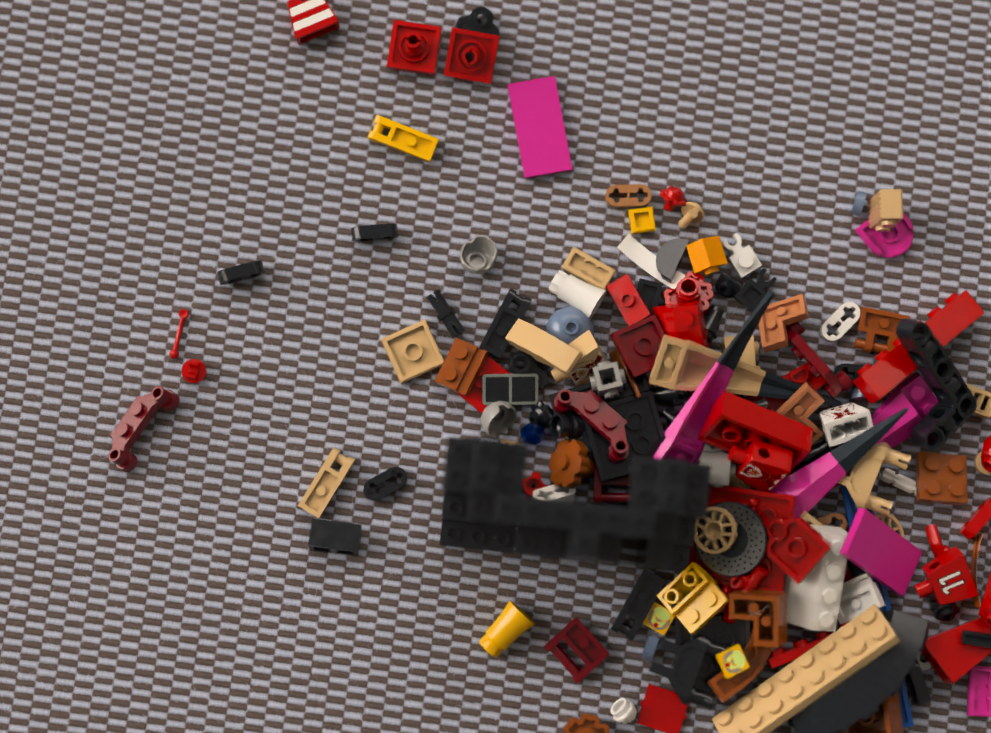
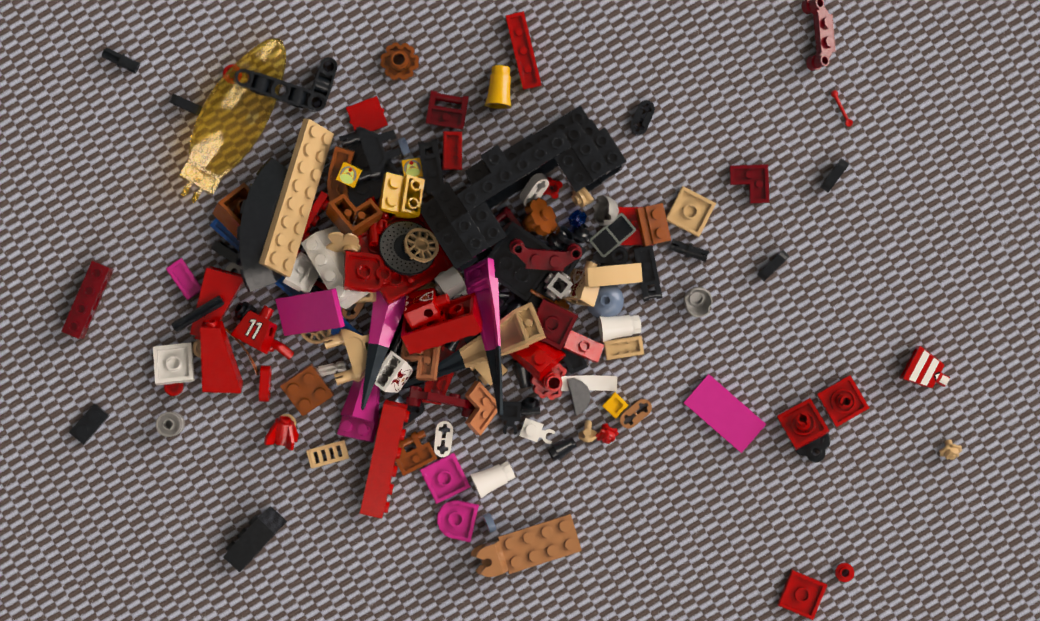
camera: 145 degrees right, 5 degrees up
(194, 371) = (813, 93): red plate -> none
(321, 335) = (756, 177): none -> dark red plate
(326, 483) = (678, 89): tan plate -> none
(335, 537) = (646, 61): black hinge -> none
(404, 139) = (802, 338): yellow plate -> none
(451, 648) = (523, 50): none -> red plate
(604, 603) = (452, 150): none -> red plate
(623, 711) = (390, 95): white plate -> none
(707, 255) = (557, 413): light orange brick -> none
(729, 219) = (561, 448): none -> black cone
(794, 594) = (343, 242): none -> tan plate
(822, 244) = (492, 478): none -> white plant
(841, 149) = (528, 547): none -> medium nougat hinge
(868, 282) = (445, 478): none -> dark pink tile
(885, 209) = (469, 528): tan brick -> none
(954, 397) = (350, 448): black beam -> none

